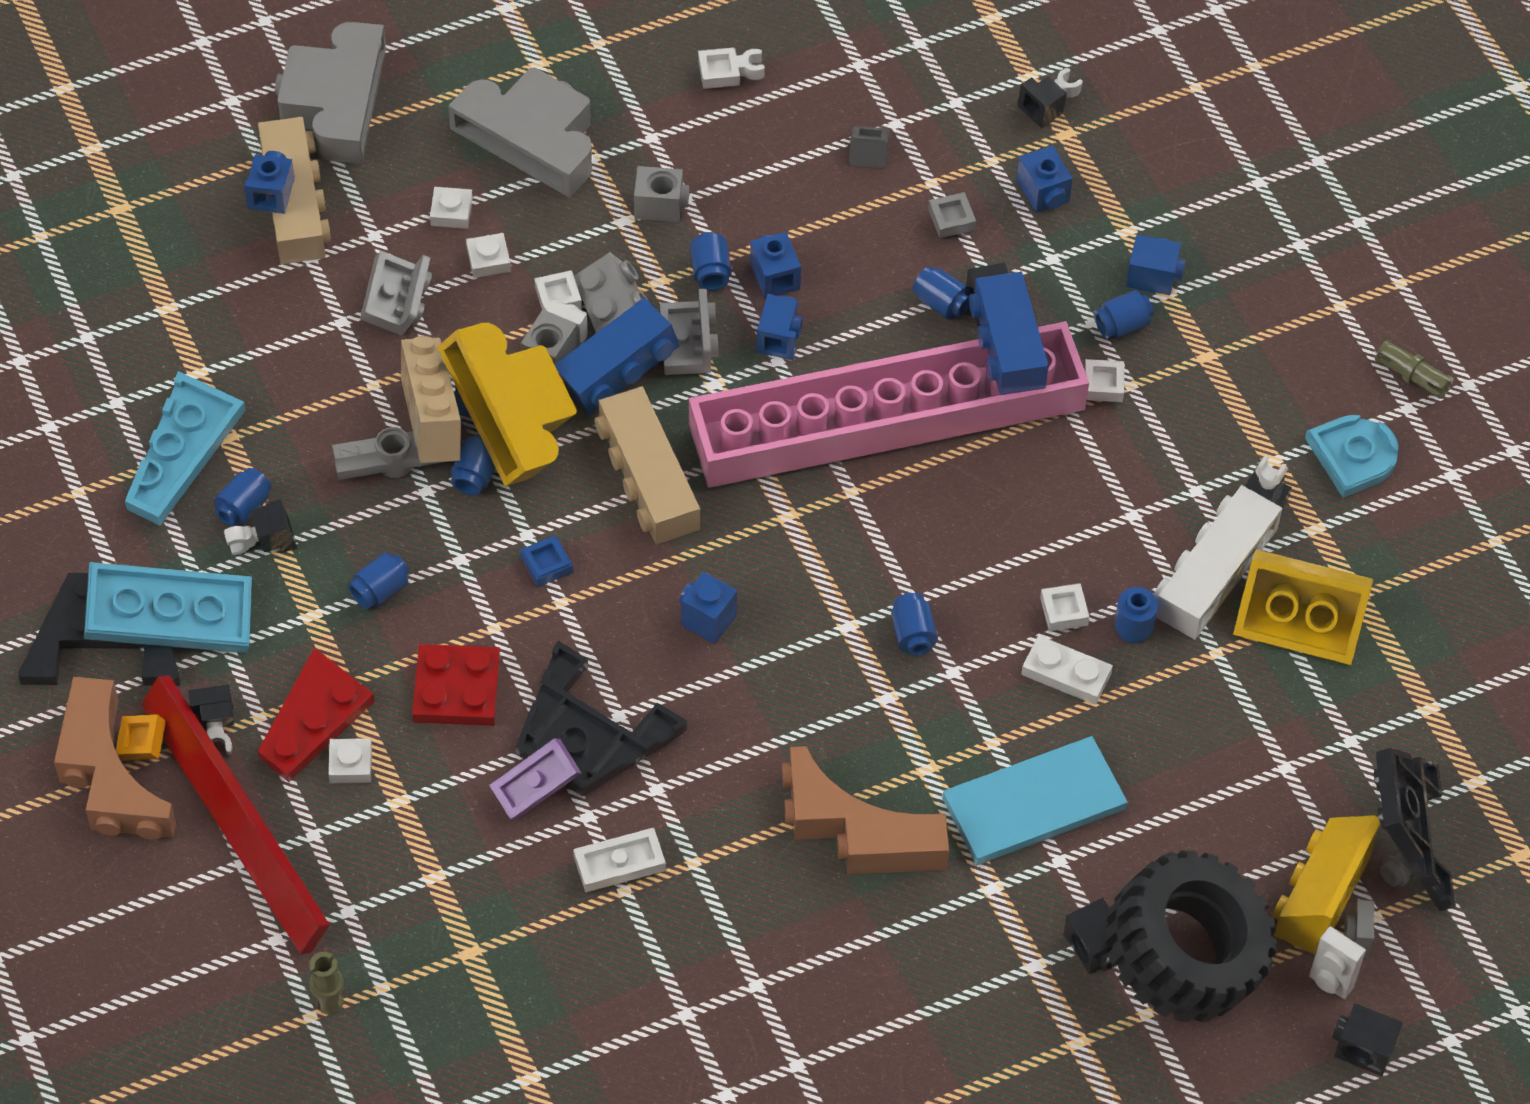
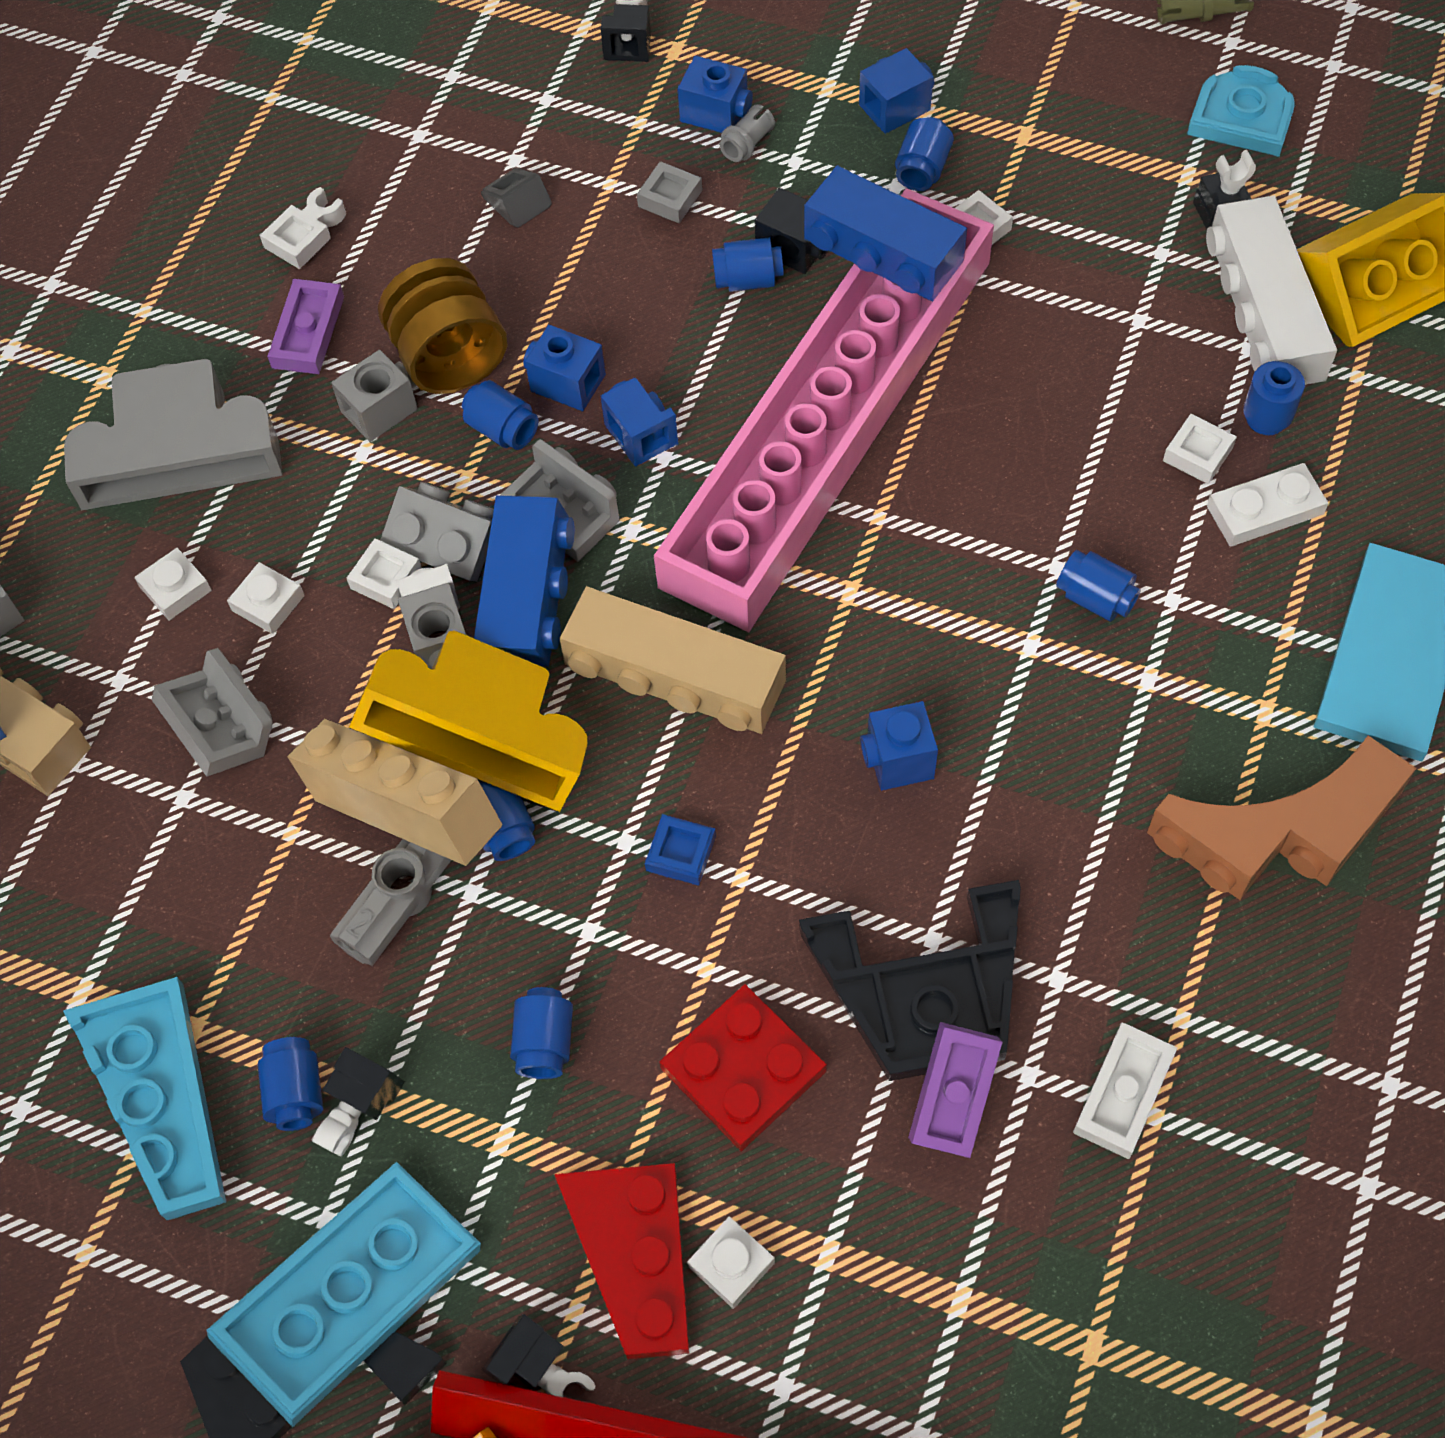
camera: 40 degrees left, 5 degrees up
(668, 124) = (306, 326): none -> medium lavender plate
(729, 184) = (442, 325): none -> pearl gold wheel
(1038, 218) = (739, 140): none -> light grey pin

